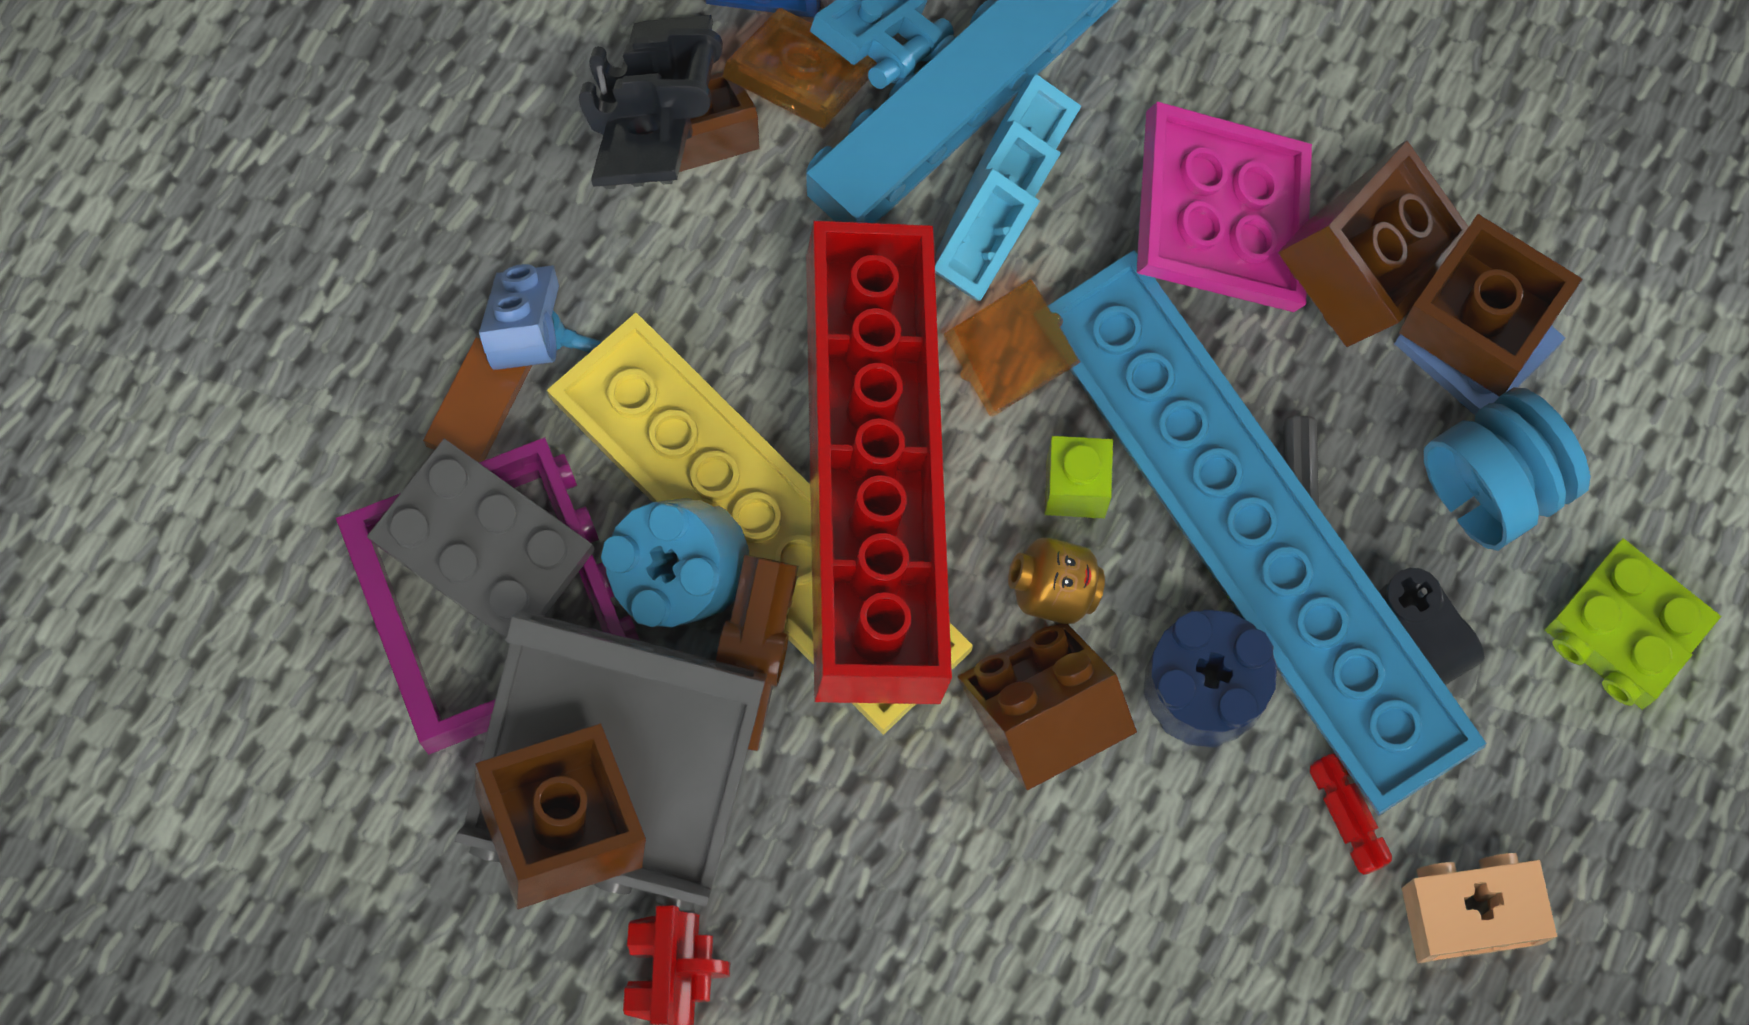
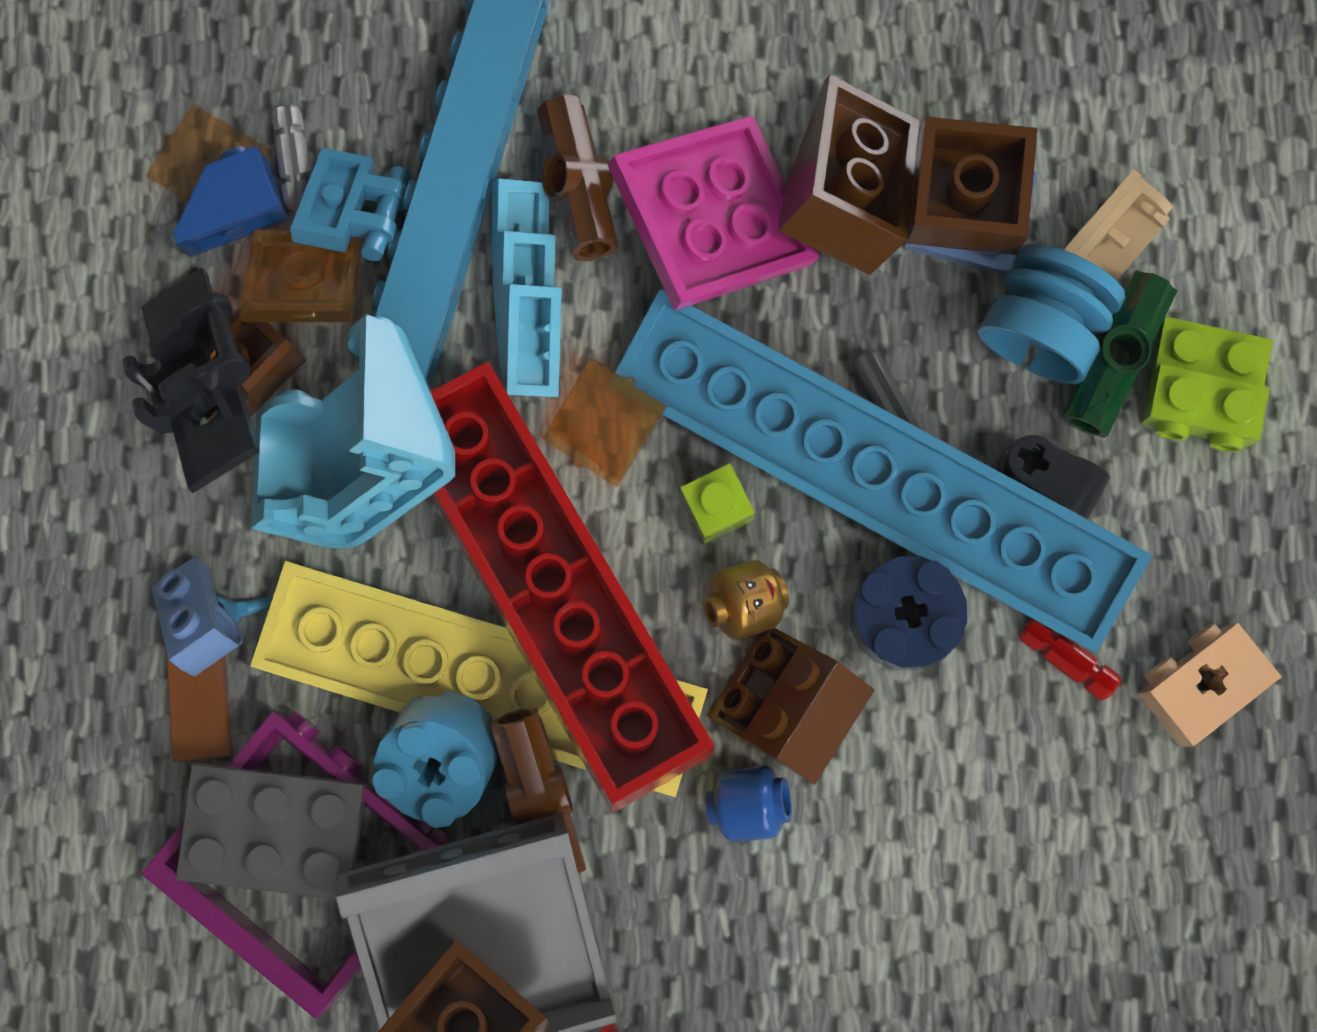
camera: 20 degrees left, 10 degrees up
(750, 254) = (359, 456): none -> medium azure windscreen
(952, 776) = (749, 803): none -> blue head
(1110, 113) = (577, 178): none -> reddish brown piece
(1530, 566) = (1134, 326): none -> dark green piece
(1625, 428) = (1122, 226): none -> tan hinge

